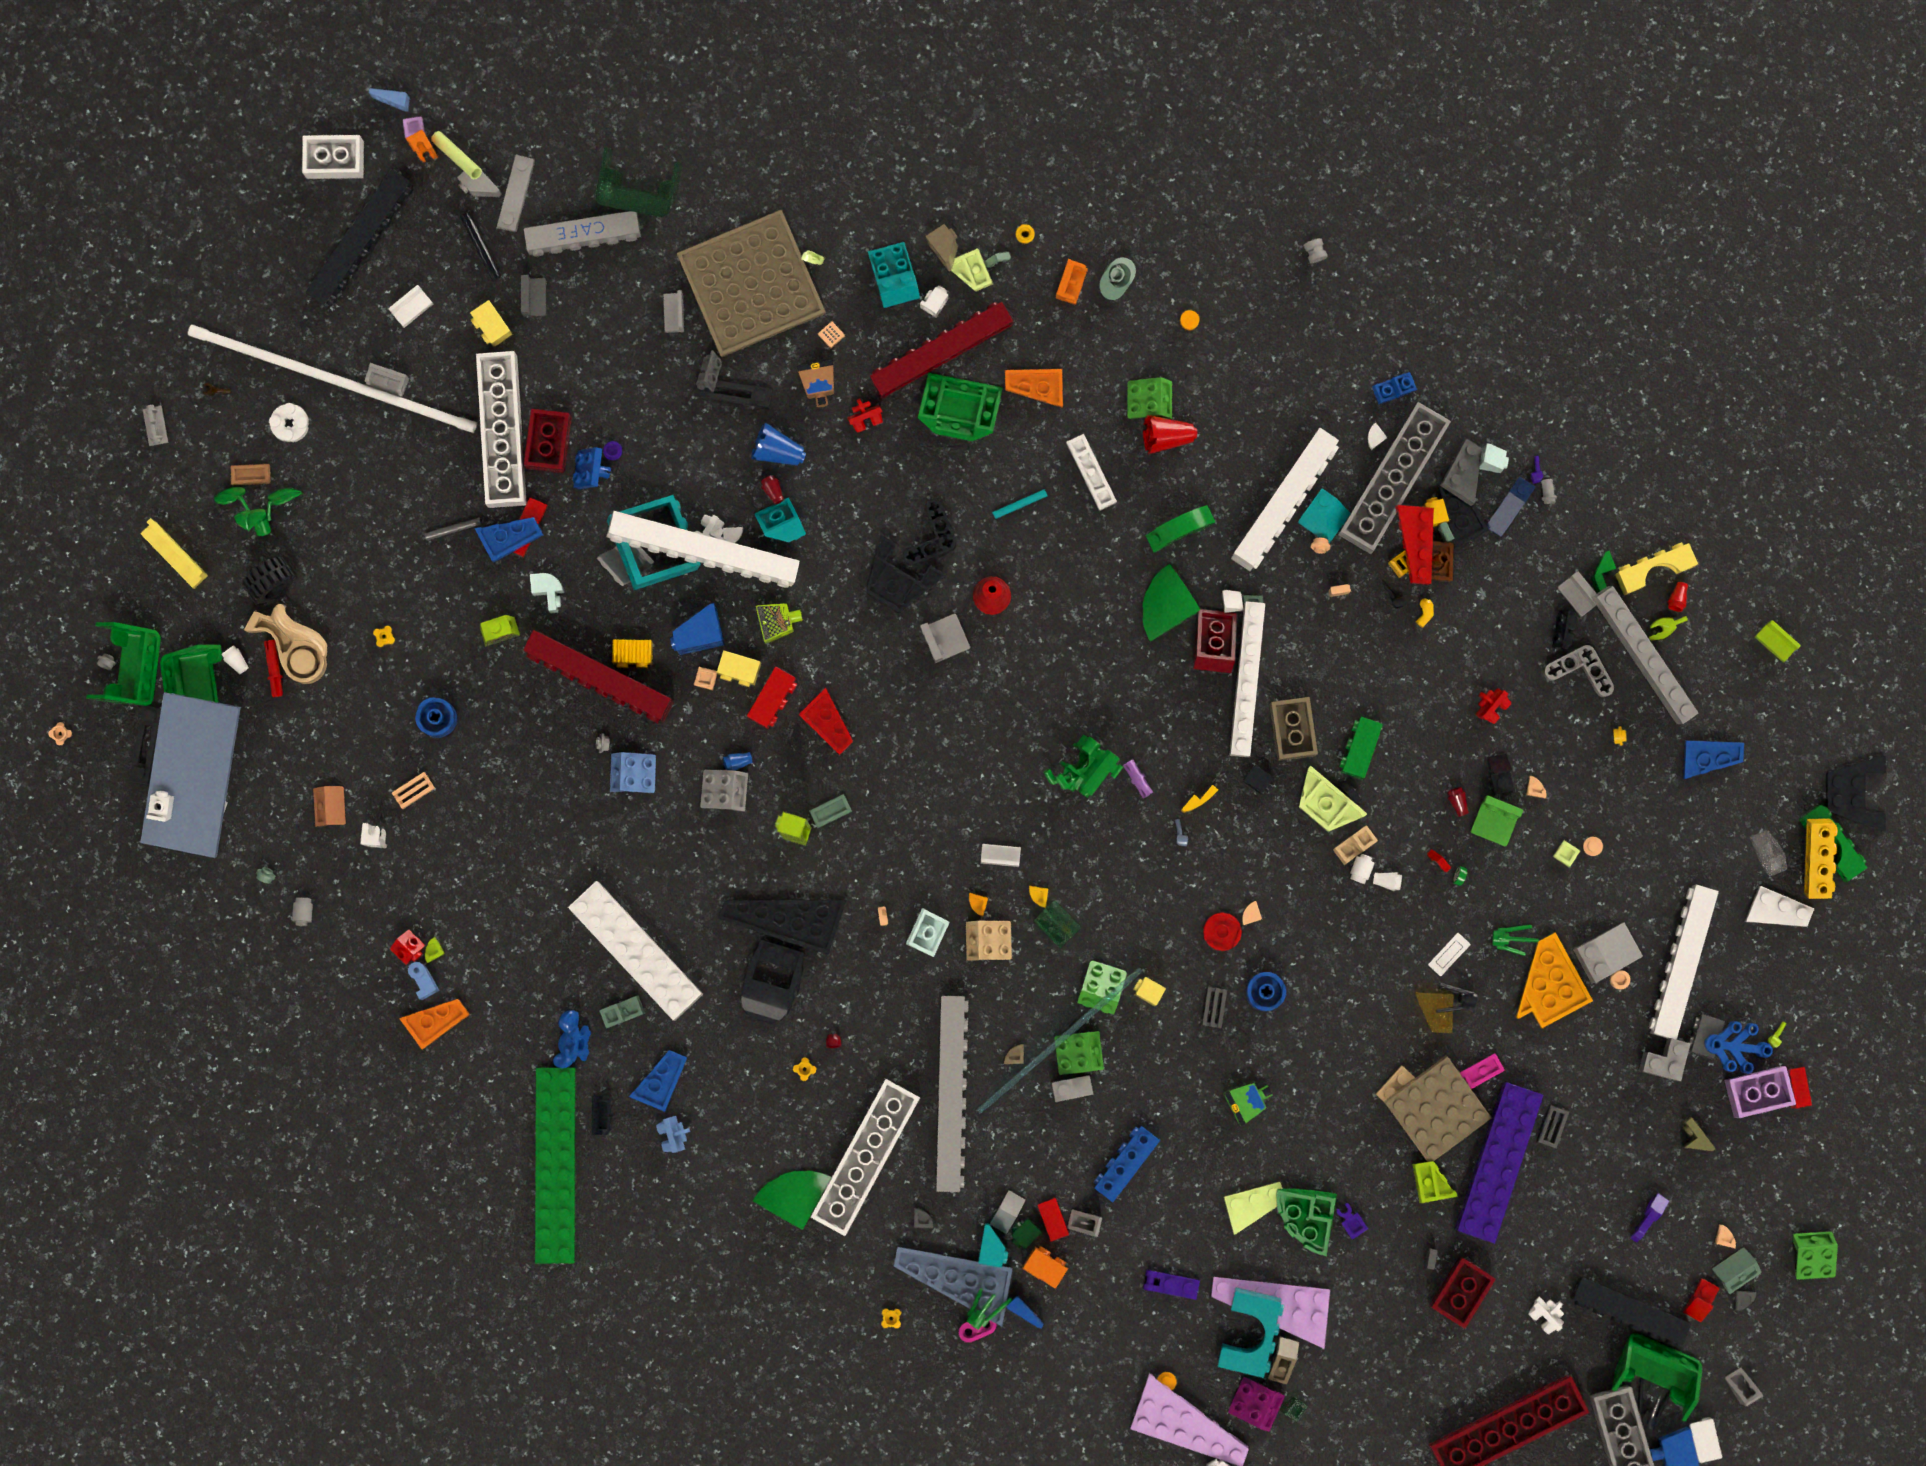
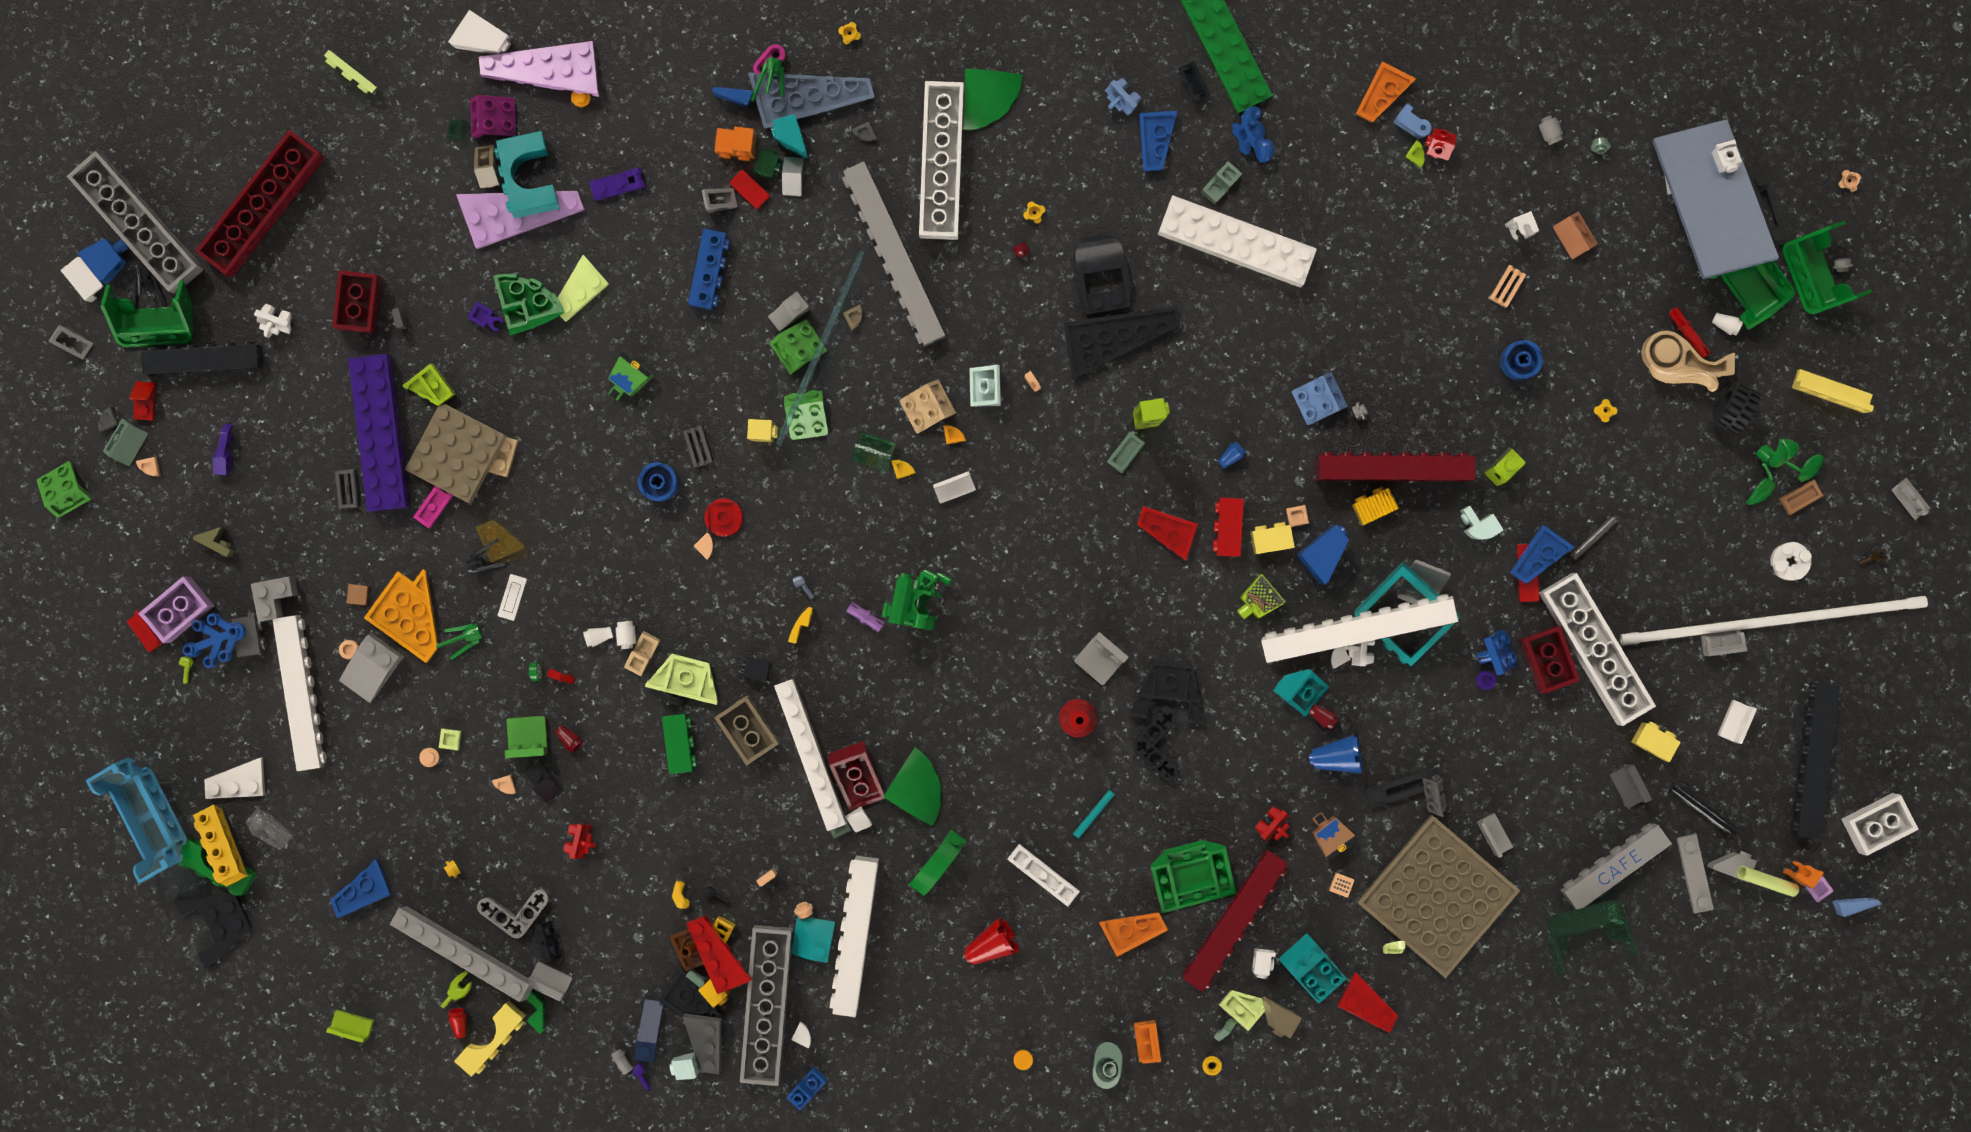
camera: 150 degrees right, 5 degrees up
(724, 790) = (1230, 423): light grey bracket -> none
(862, 221) = (1366, 1004): none -> red wing
(1150, 398) = (1023, 969): bright green bracket -> none
(1588, 1025) = (357, 594): none -> medium nougat tile
(1874, 917) = (144, 814): none -> dark azure windscreen

